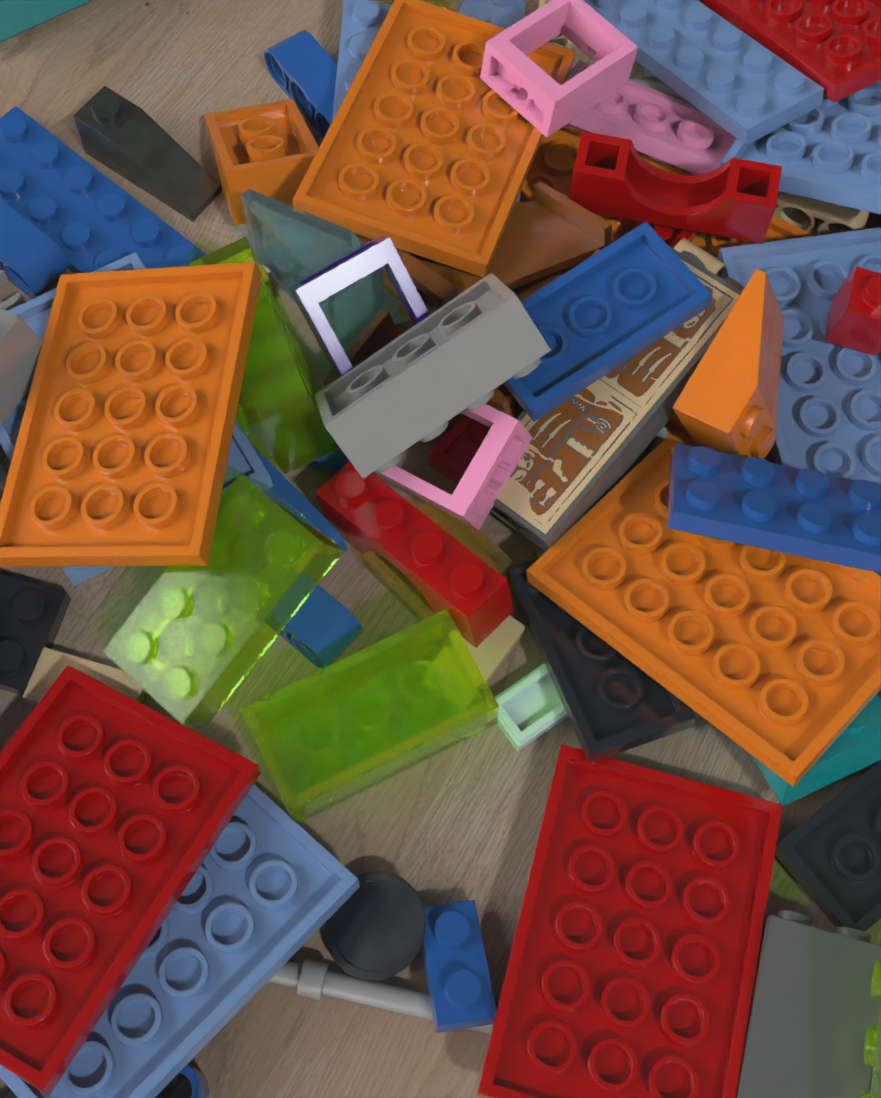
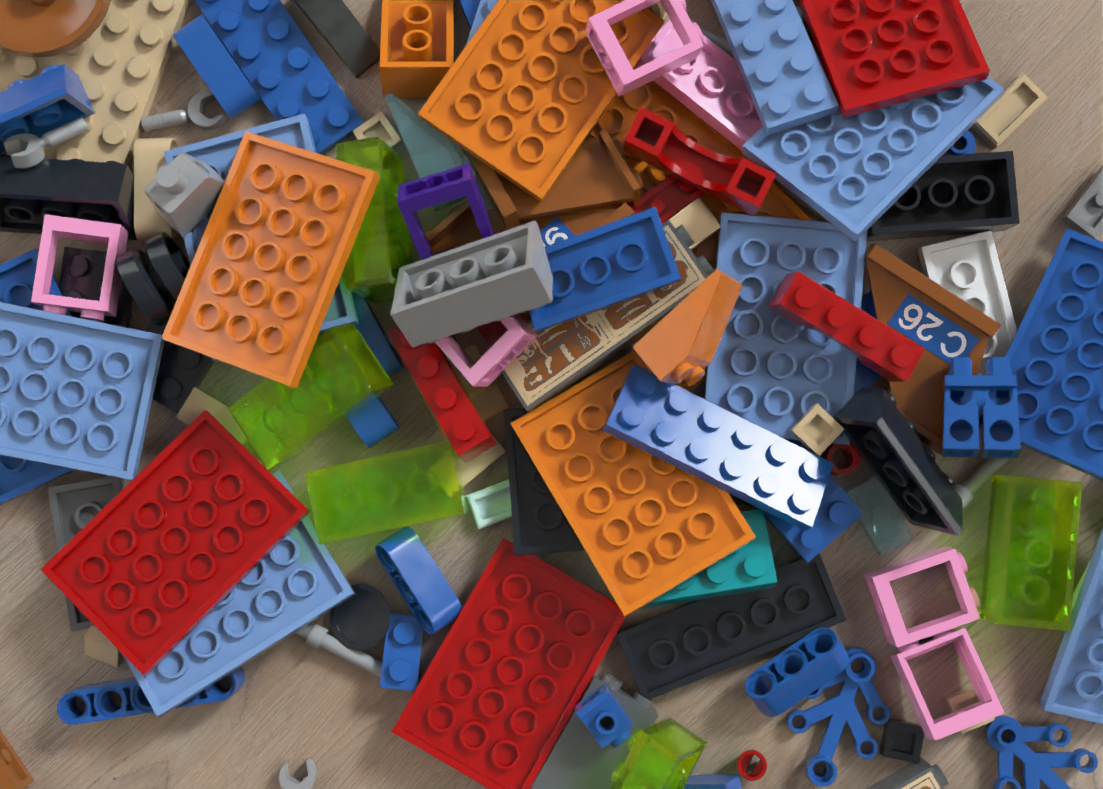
camera: 20 degrees right, 20 degrees up
(452, 841) = (418, 579): none -> beam
(791, 966) = (602, 704): none -> blue brick

